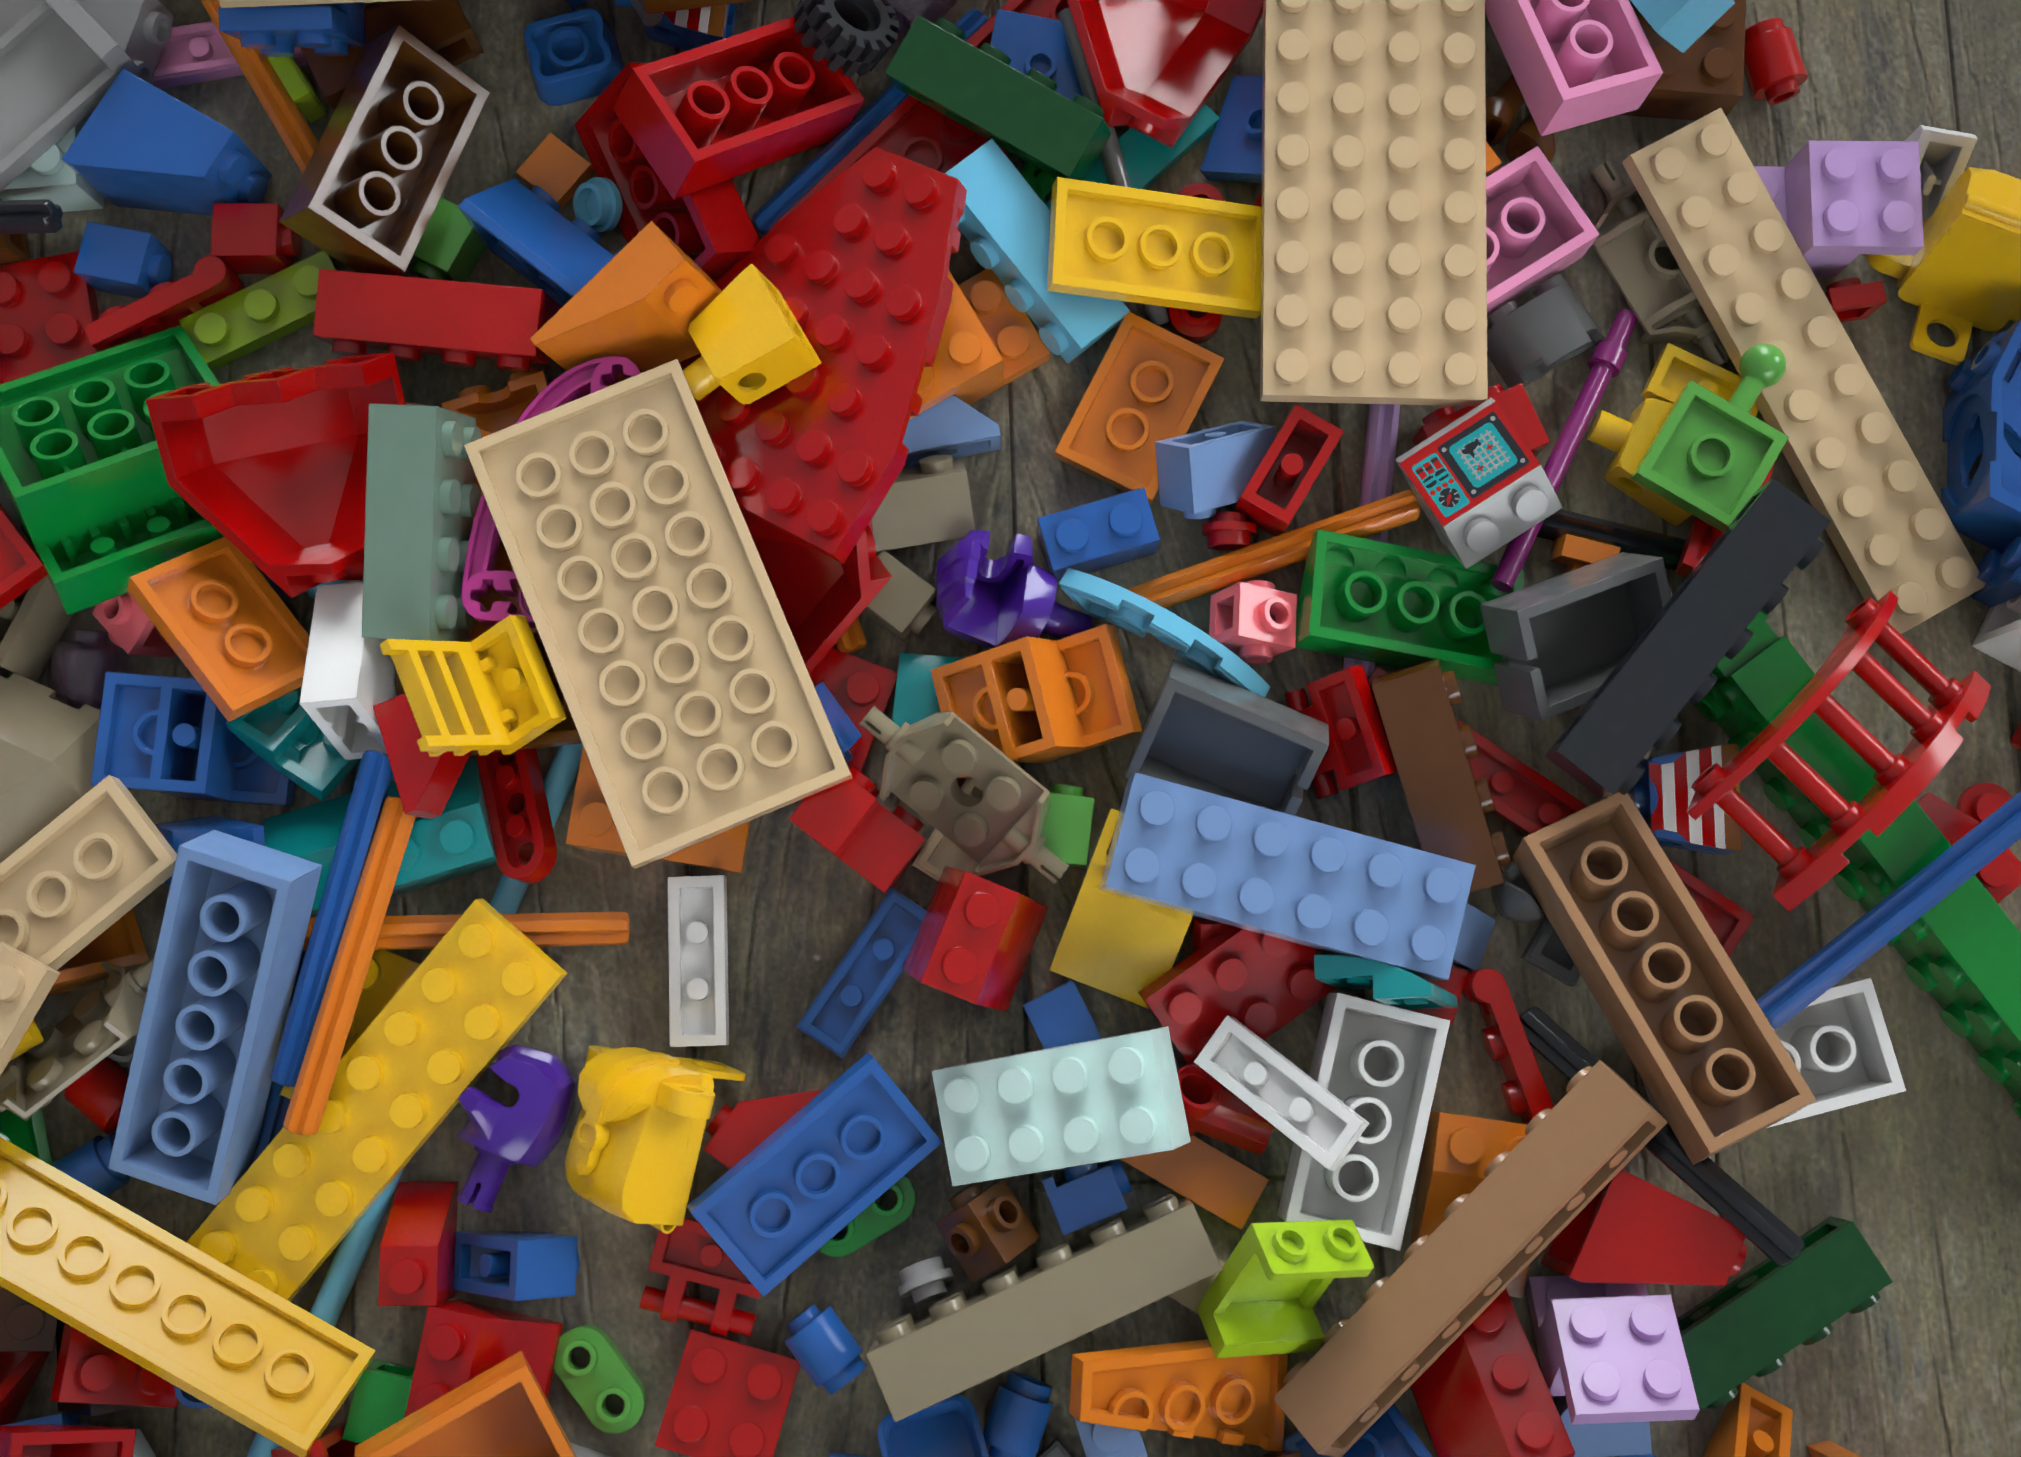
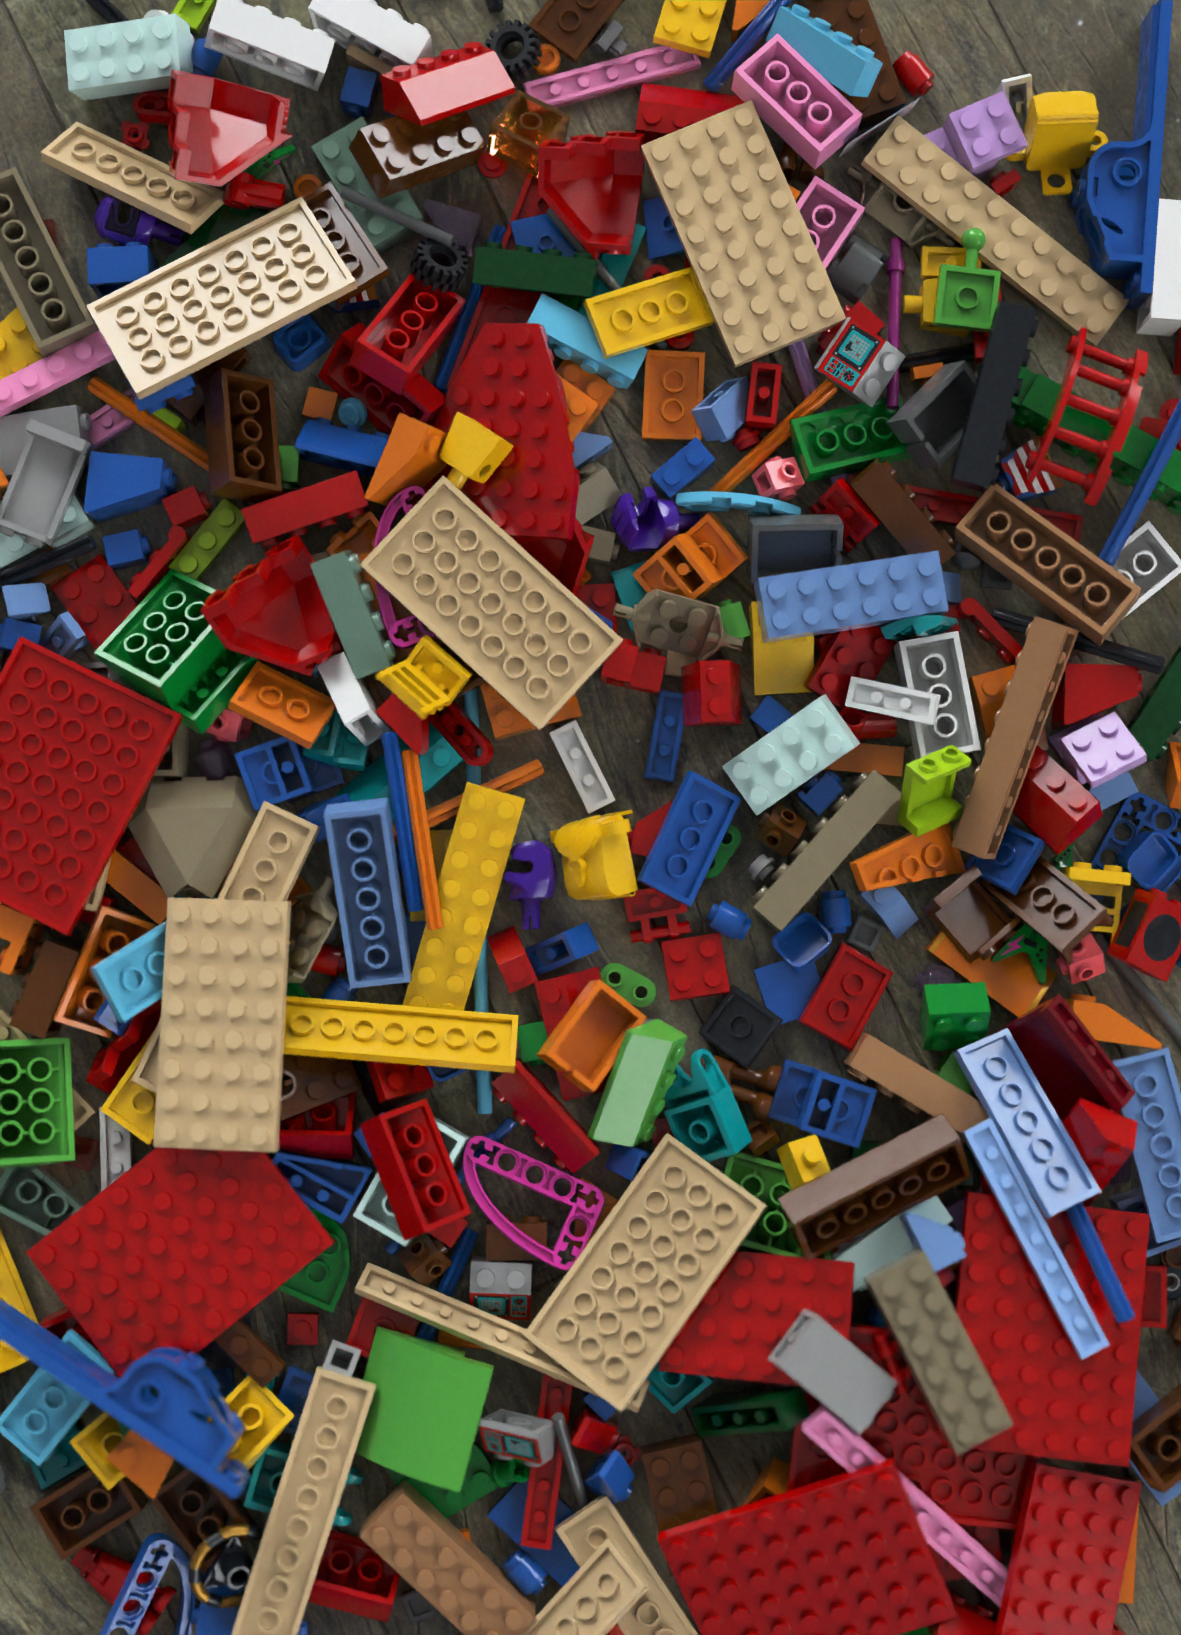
camera: 30 degrees left, 5 degrees up
(1674, 117) = (878, 127): none -> white sticker

